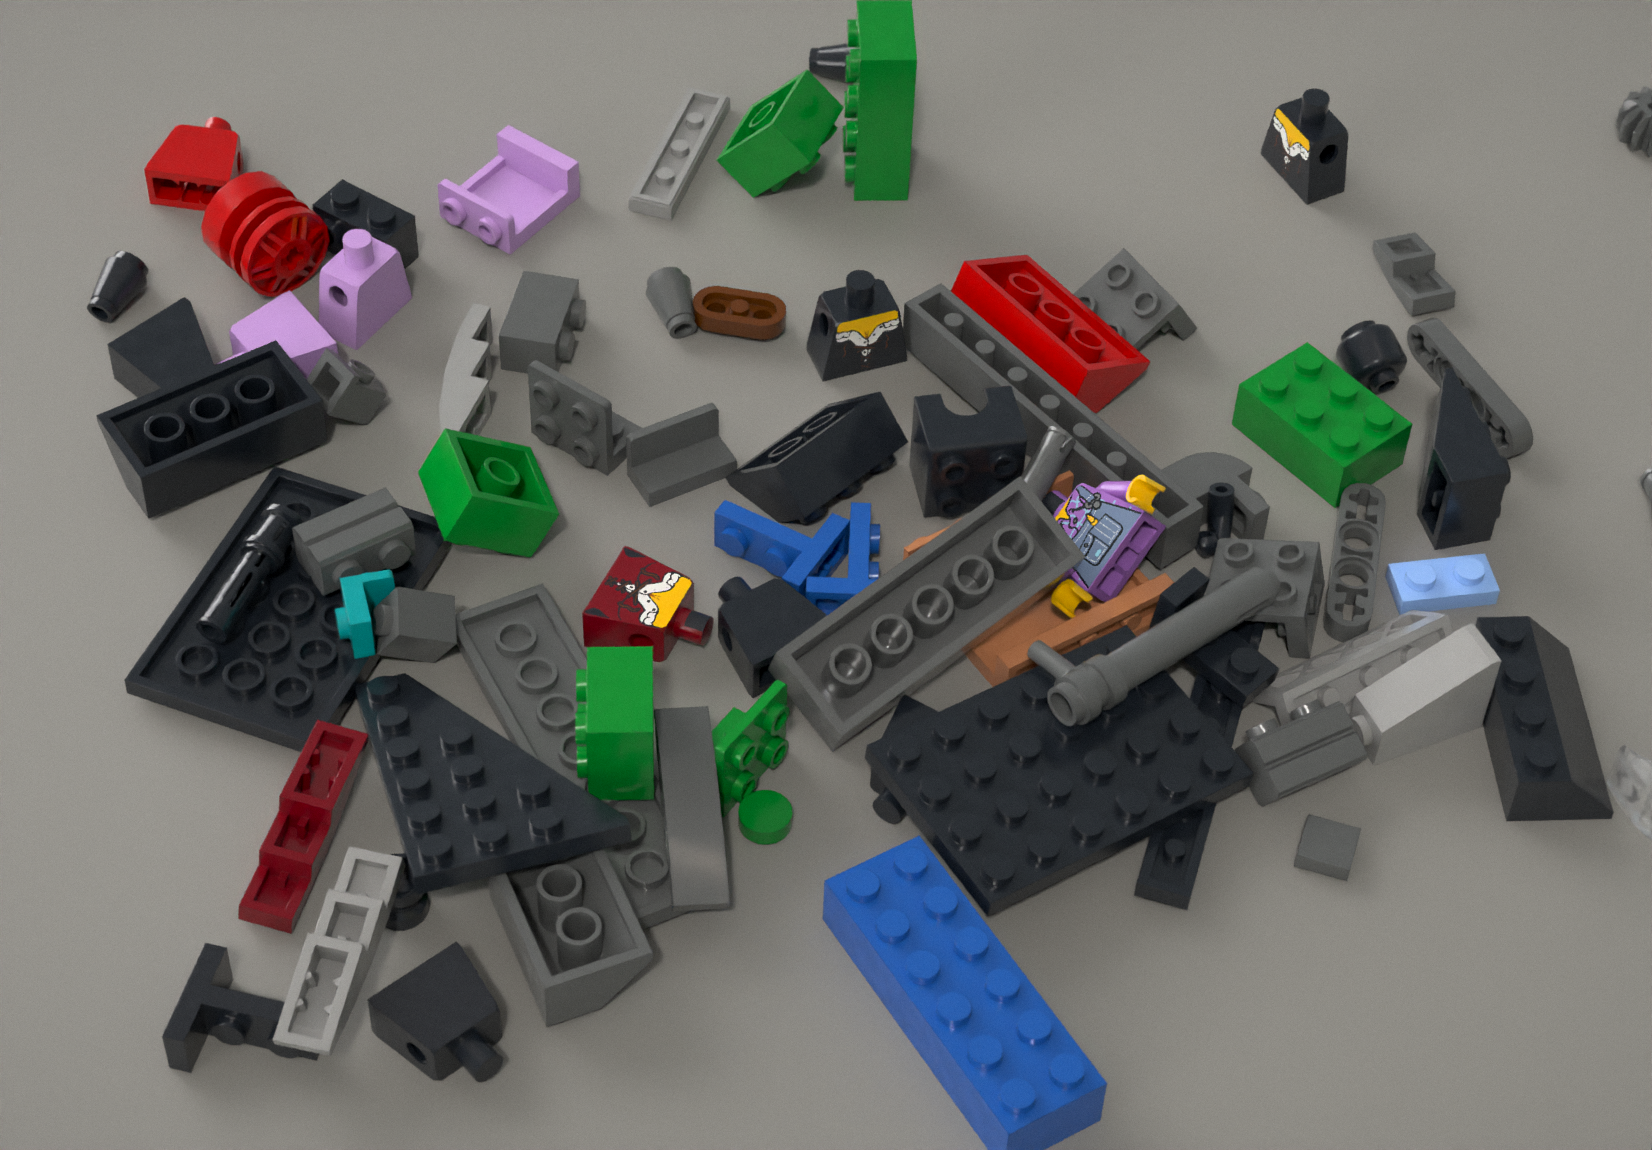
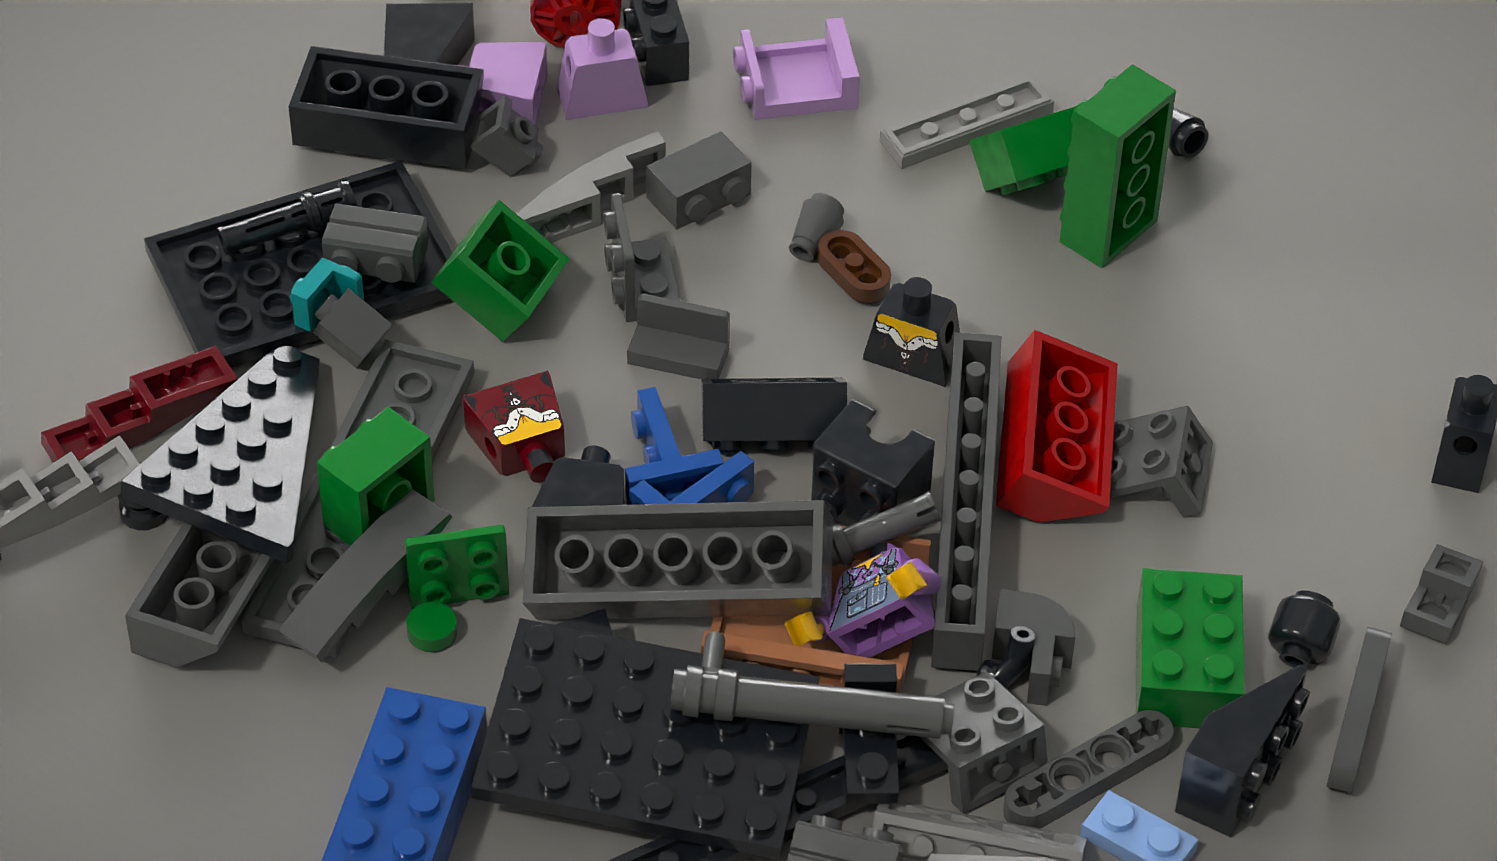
camera: 45 degrees right, 0 degrees up
(441, 1017) = (73, 593): black torso -> none

